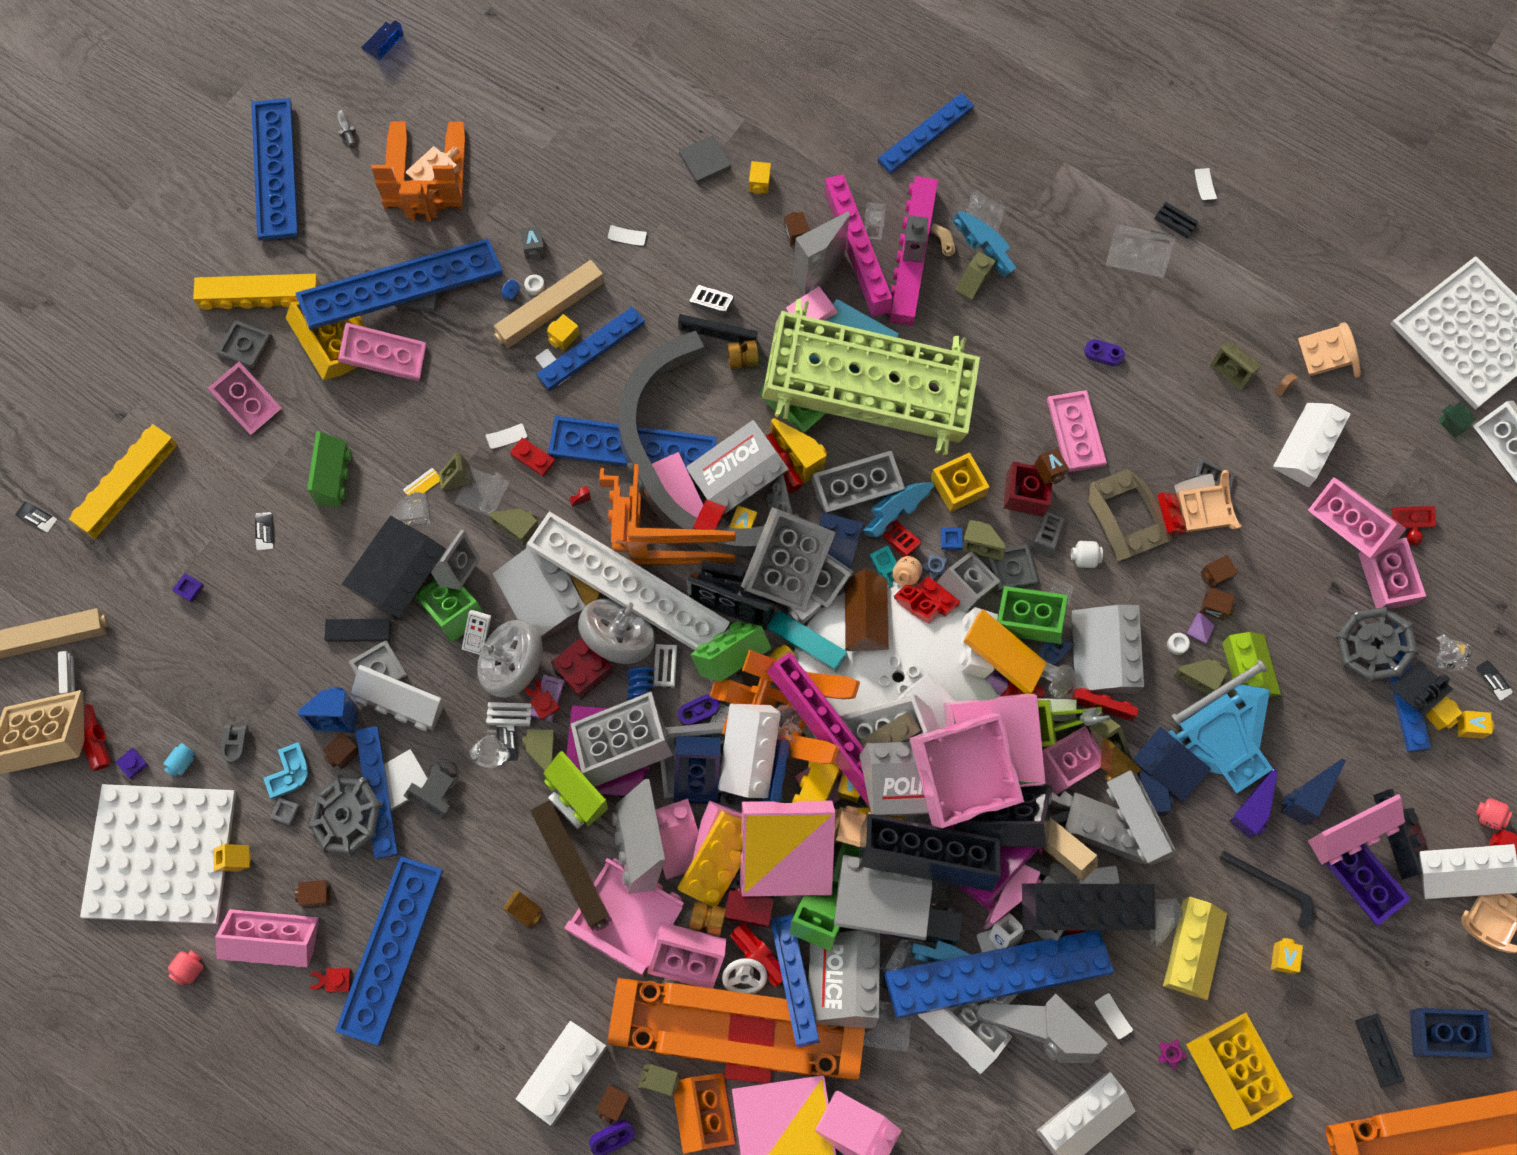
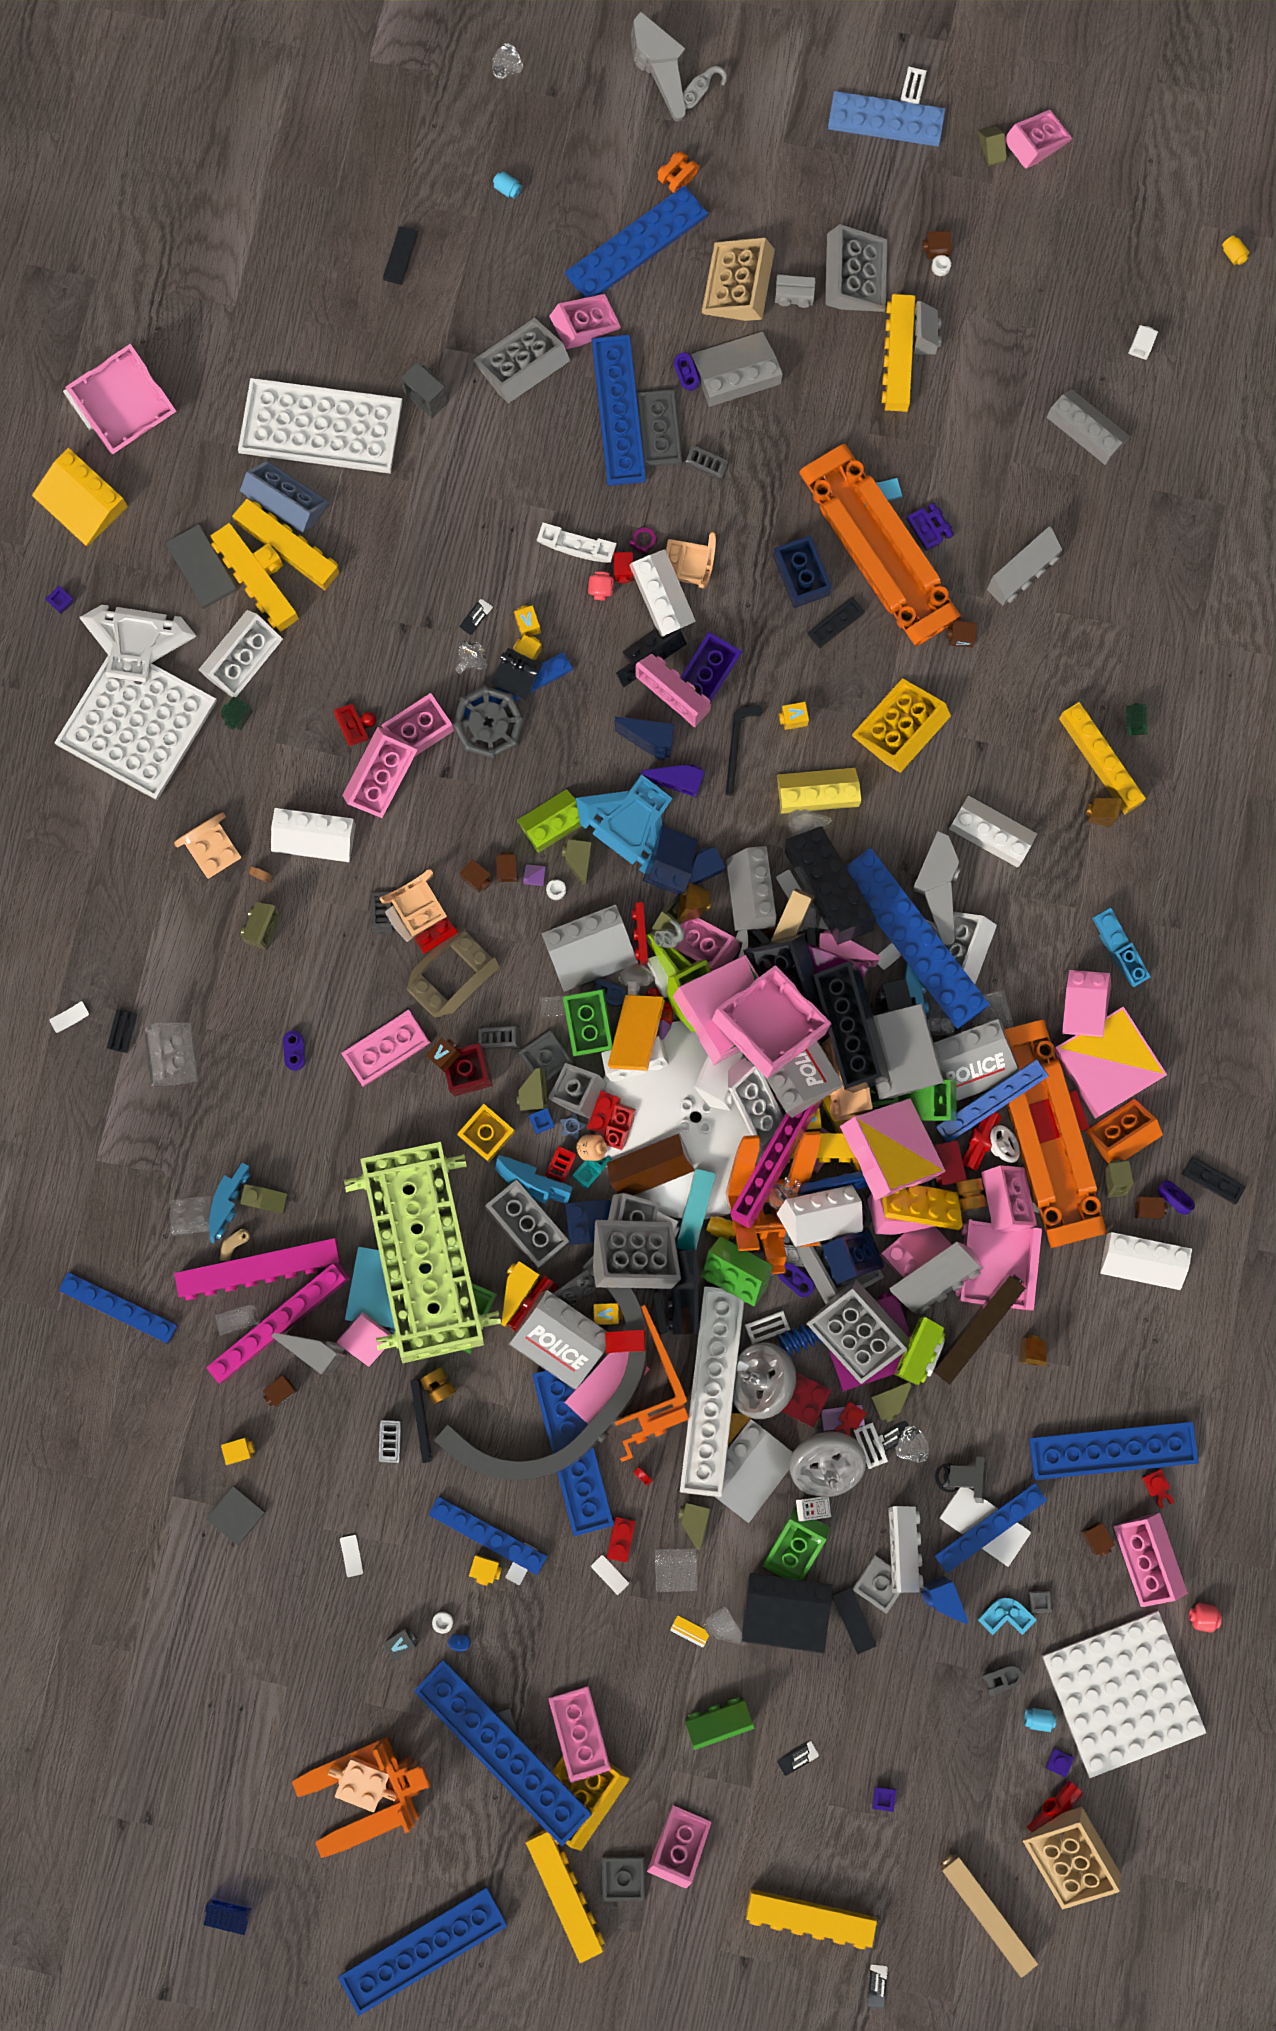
camera: 110 degrees left, 10 degrees up
(66, 672) = (1011, 1866): white tile -> none
(231, 858) = (1102, 1625): yellow brick -> none
(340, 751) = (969, 1578): reddish brown brick -> none
(346, 131) = (349, 1898): flat silver piece -> none
(355, 817) = (1015, 1537): dark grey plate -> none
(455, 473) = (671, 1602): olive slope -> none
(456, 562) = (759, 1557): light grey slope -> none
(548, 304) = (460, 1597): tan brick -> none
(894, 731) = (765, 1098): dark tan plate -> none
(915, 234) = (255, 1267): dark grey torso -> none
(1006, 932) = (876, 944): white brick -> none
(1087, 554) = (507, 996): white head -> none
(1113, 1016) = (900, 837): white sticker -> none
(1142, 818) = (738, 866): light grey slope -> none
(1177, 1053) = (915, 782): magenta plate -> none
(1259, 667) = (593, 839): light grey bar -> none

